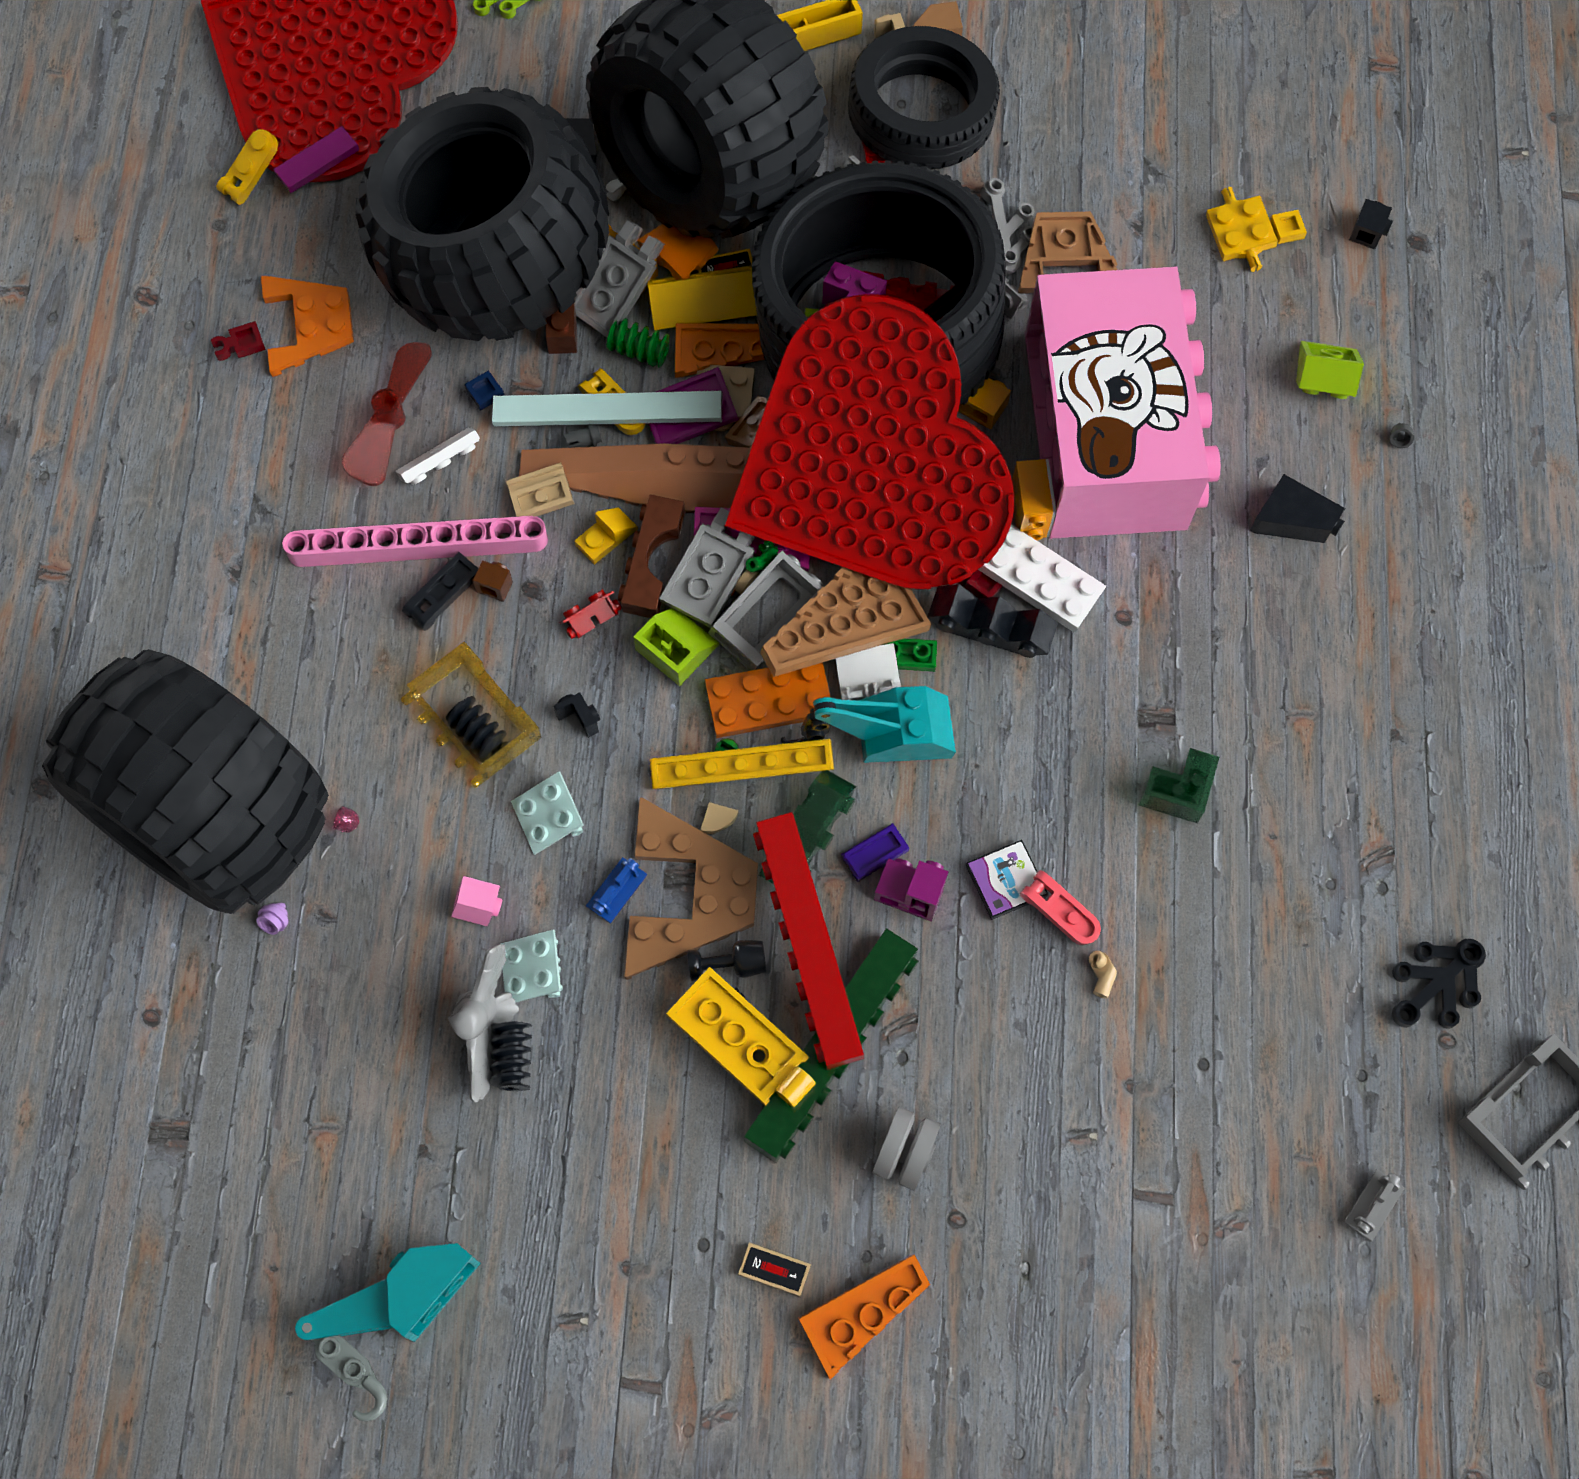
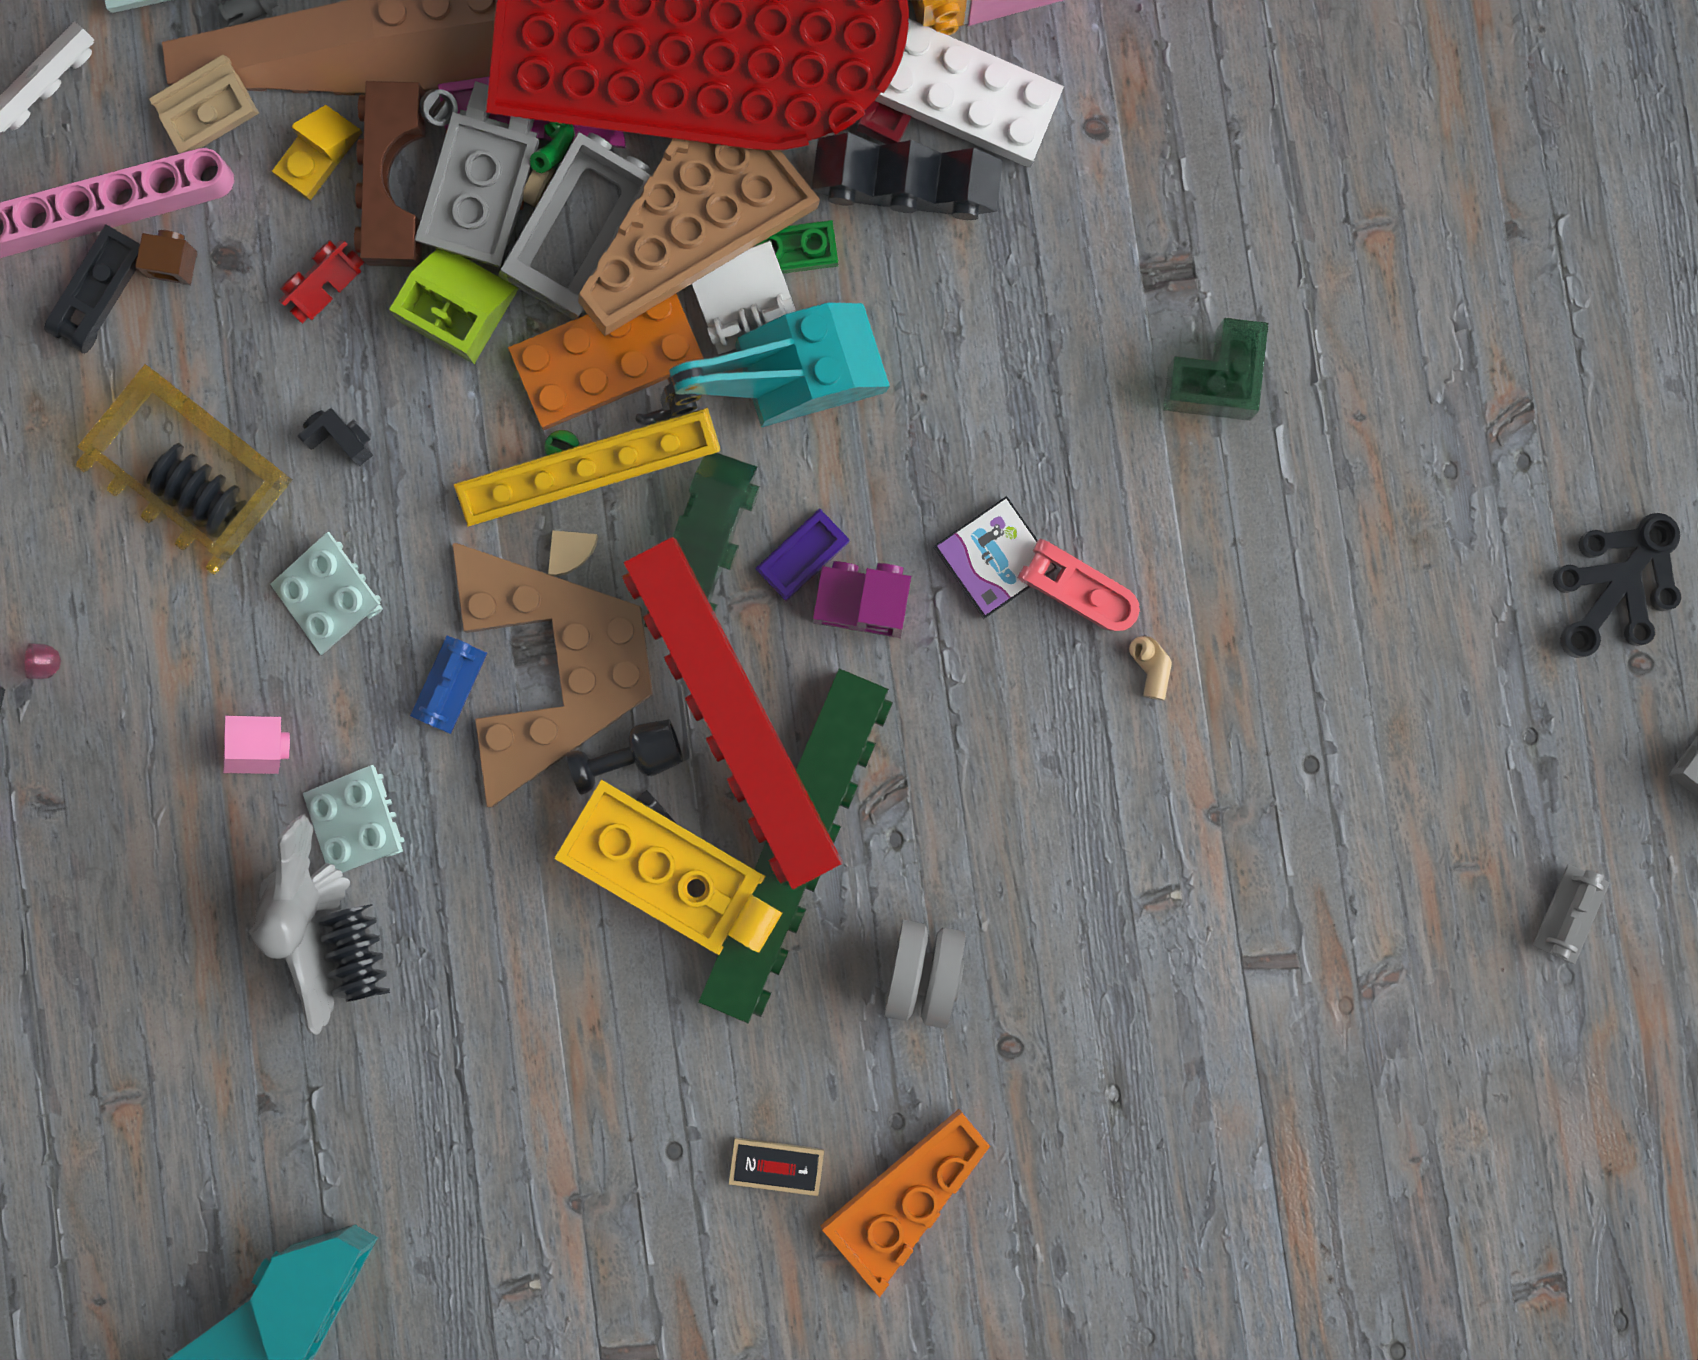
camera: 10 degrees left, 15 degrees up
(695, 523) = (443, 112): none -> dark grey hinge

